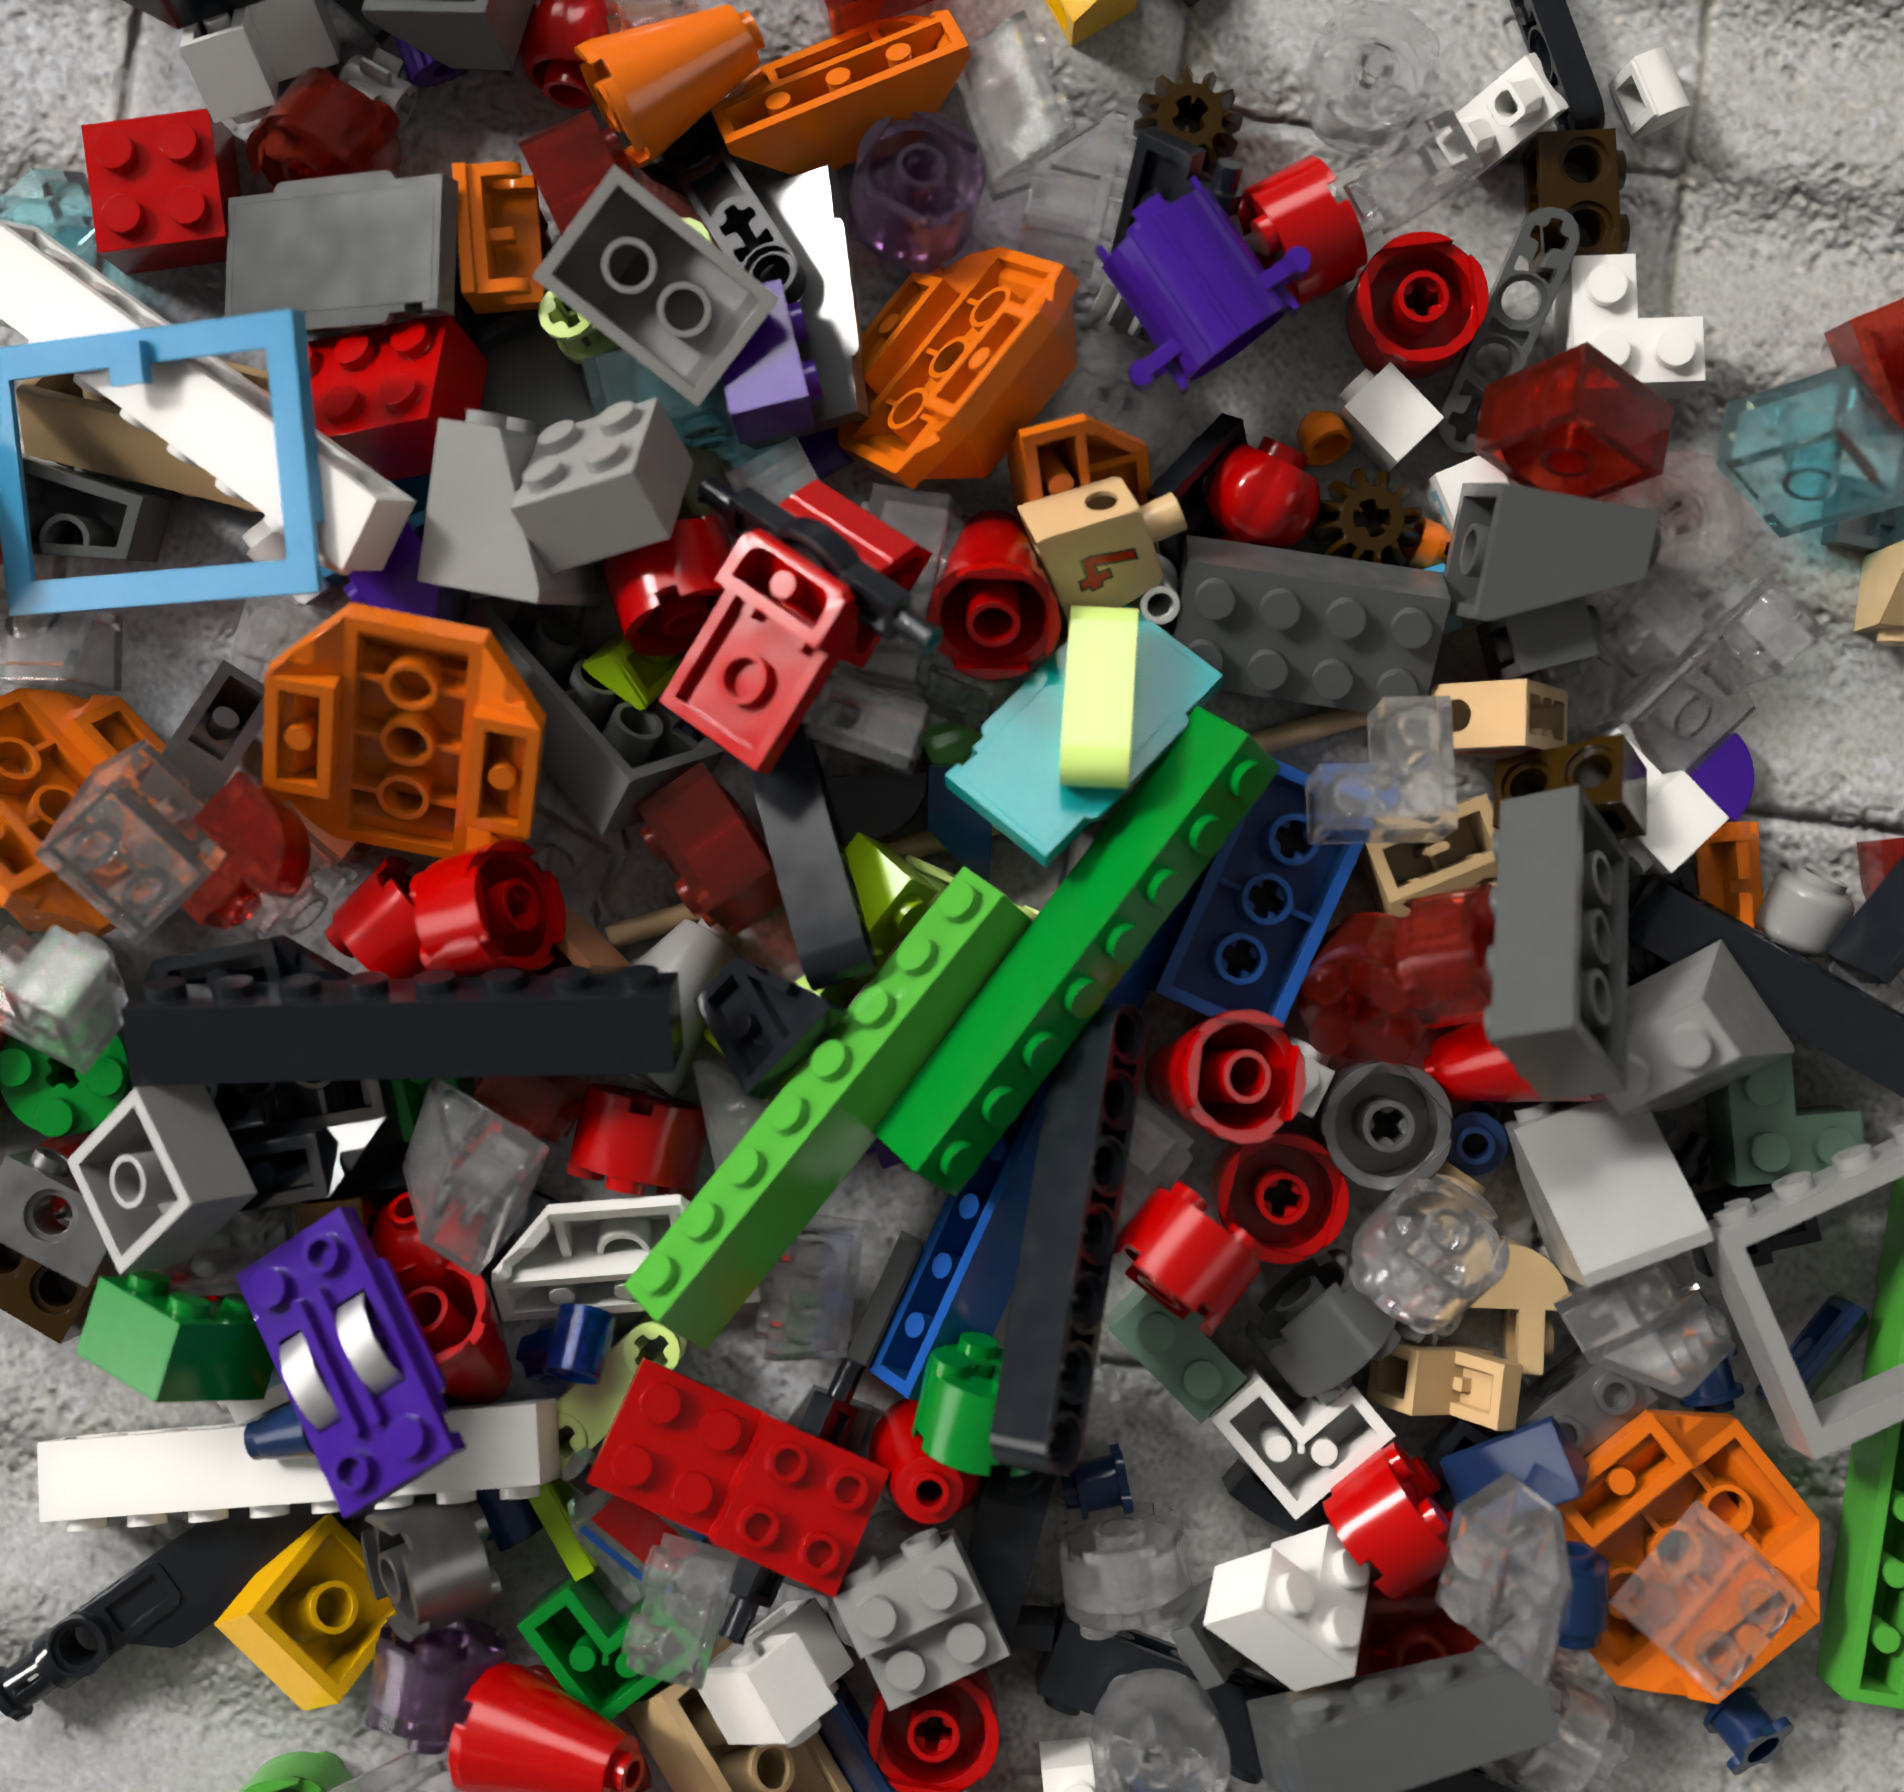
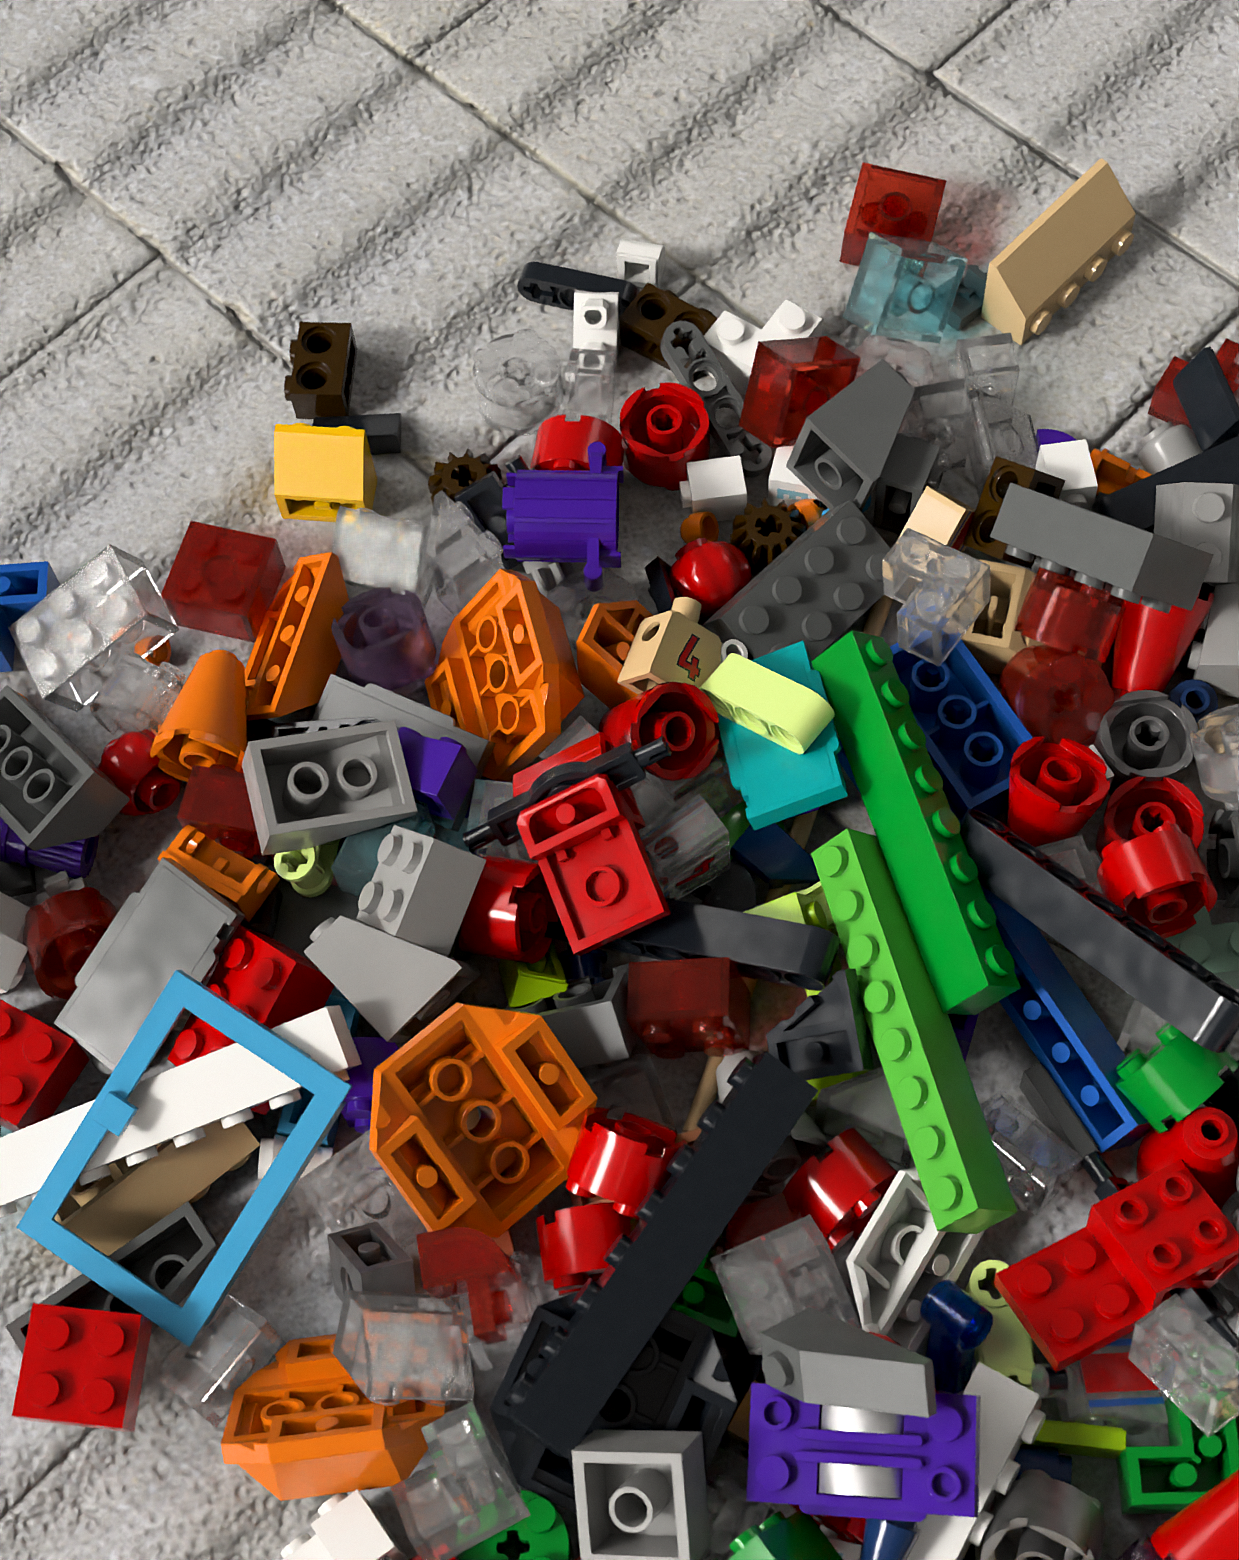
camera: 50 degrees left, 25 degrees down
(392, 1296) = (845, 1366): none -> dark grey slope

